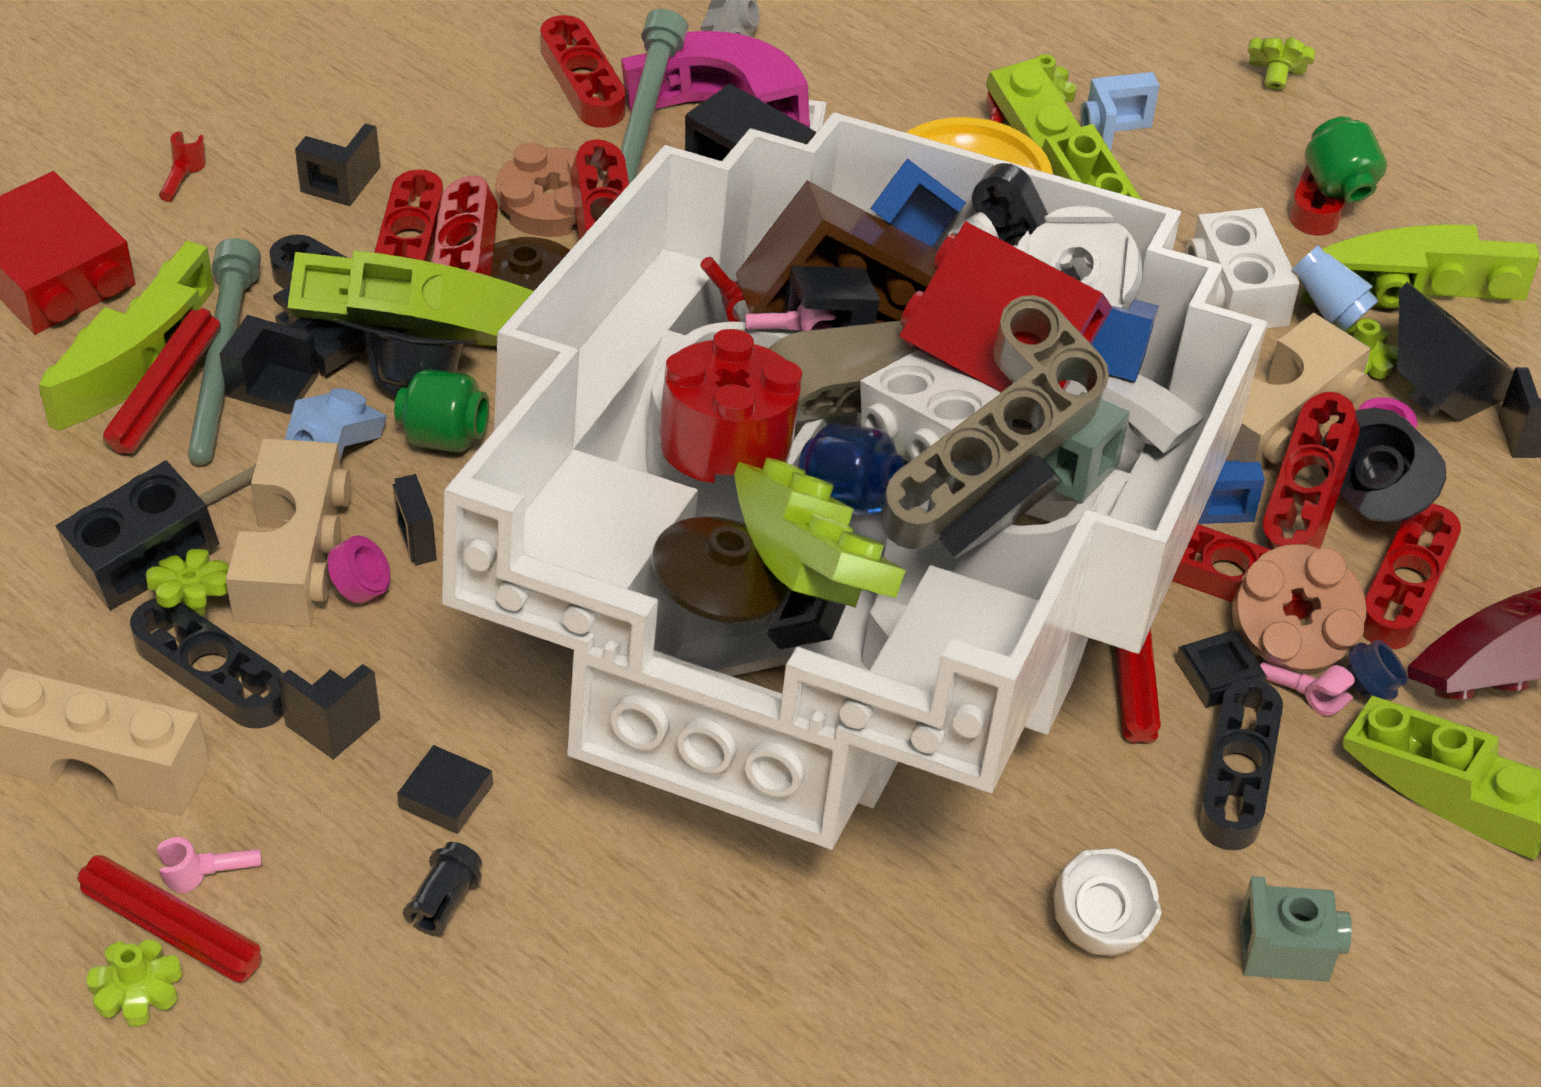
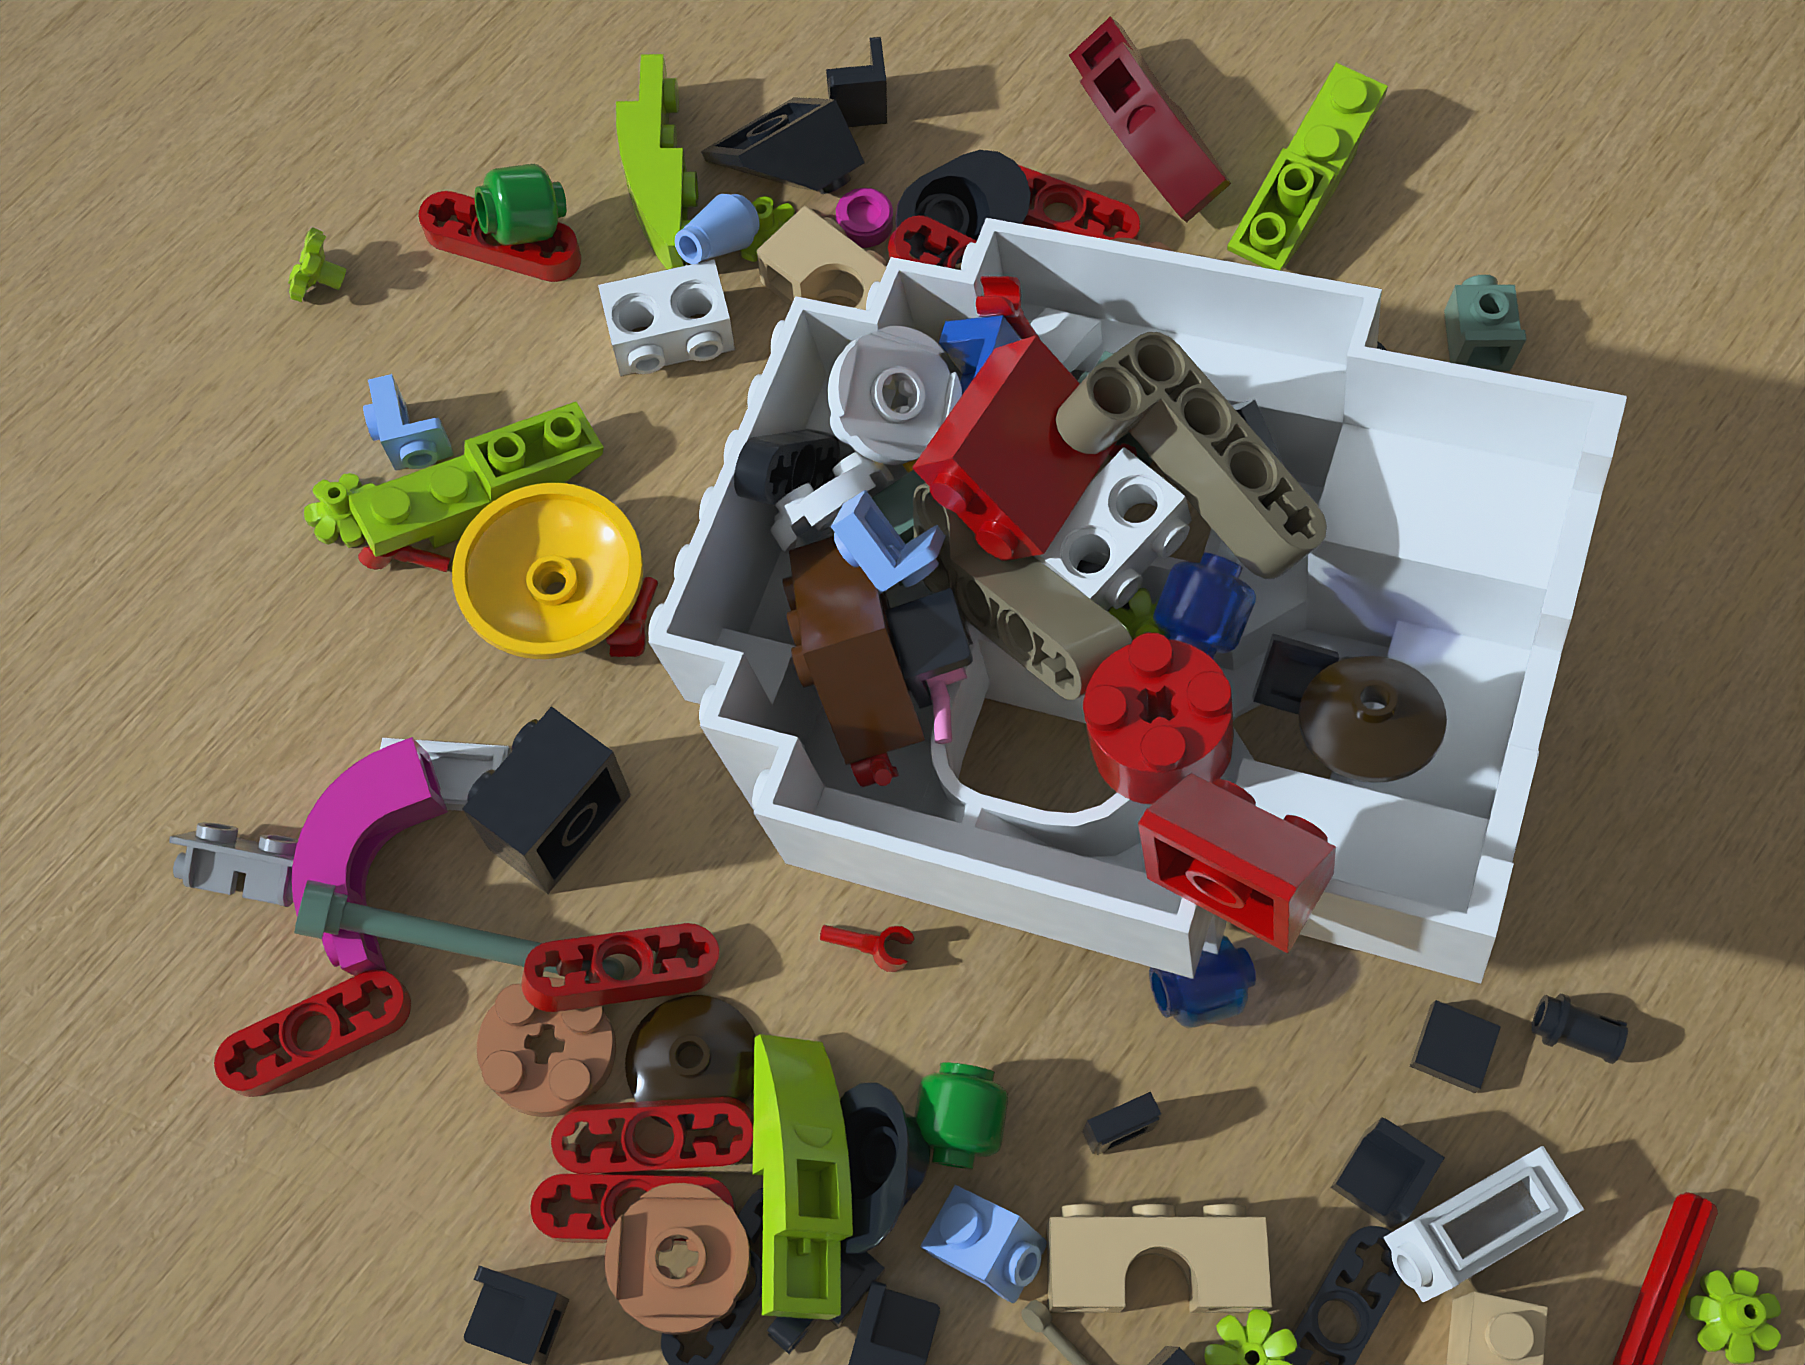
camera: 90 degrees left, 20 degrees up
(189, 867) = (1590, 1276): bright pink hand -> none
(261, 749) = (1482, 1224): none -> white window
(331, 224) = (649, 1228): none -> nougat plate
(359, 569) = (1200, 1173): dark pink tile -> none
(539, 310) = (1237, 858): none -> red slope
(808, 535) = (1342, 638): lime slope -> none
(914, 245) = (873, 544): none -> light blue bracket
(917, 203) = (752, 571): blue panel -> none
(1169, 335) = (1003, 297): none -> red hand
(1376, 670) = (1191, 238): dark blue plate -> none

